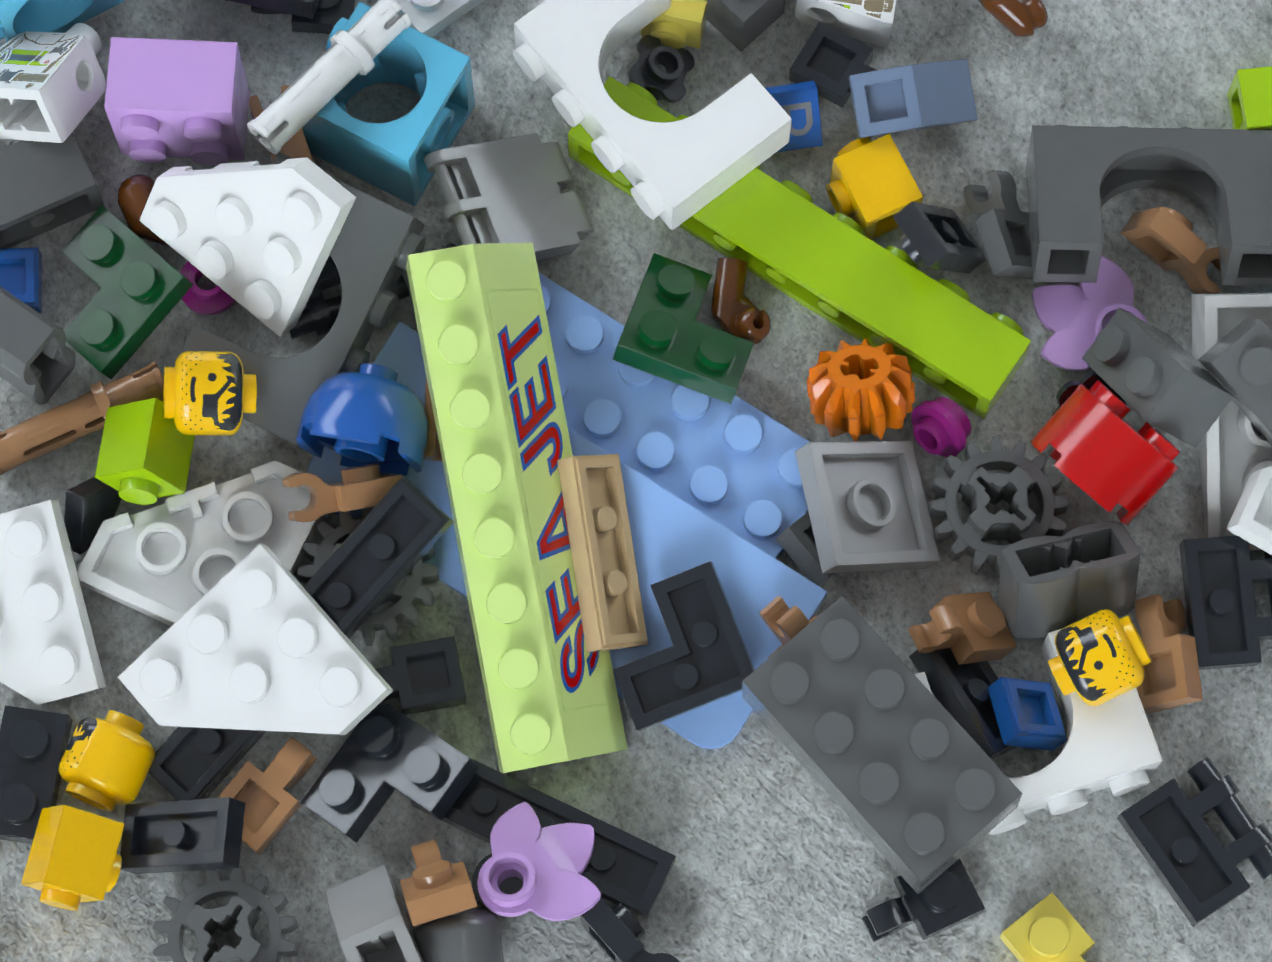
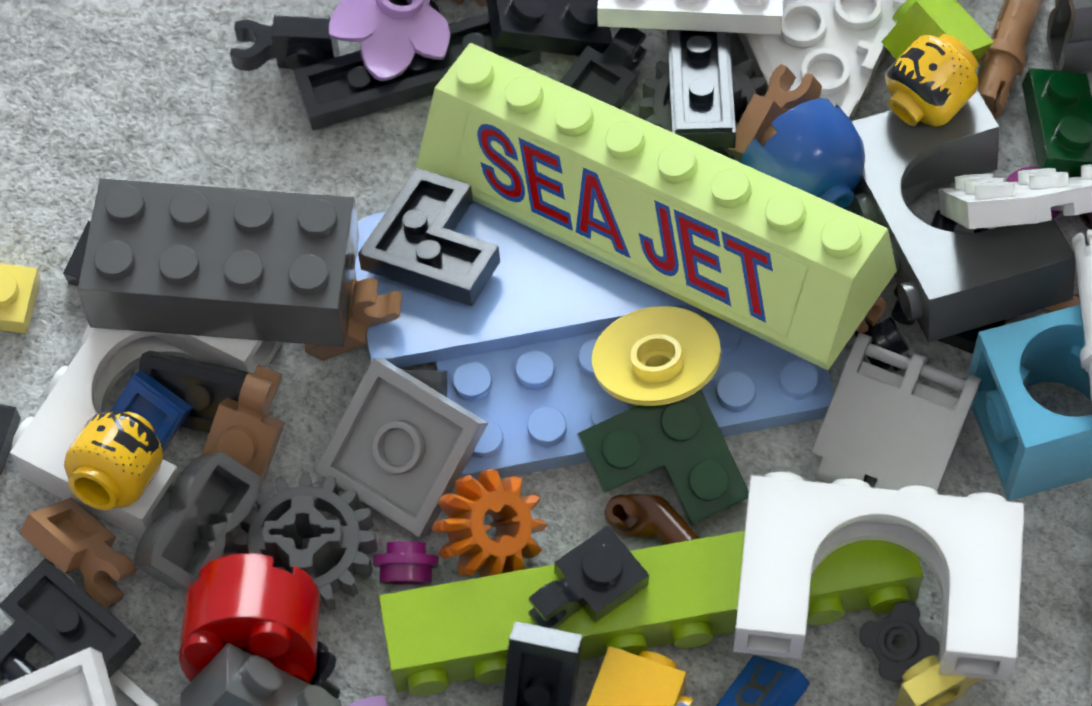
camera: 140 degrees right, 10 degrees down
(594, 381) = (656, 356): none -> light yellow dish
(602, 552) = (556, 241): tan tile -> none
(833, 267) = (592, 577): none -> black plate

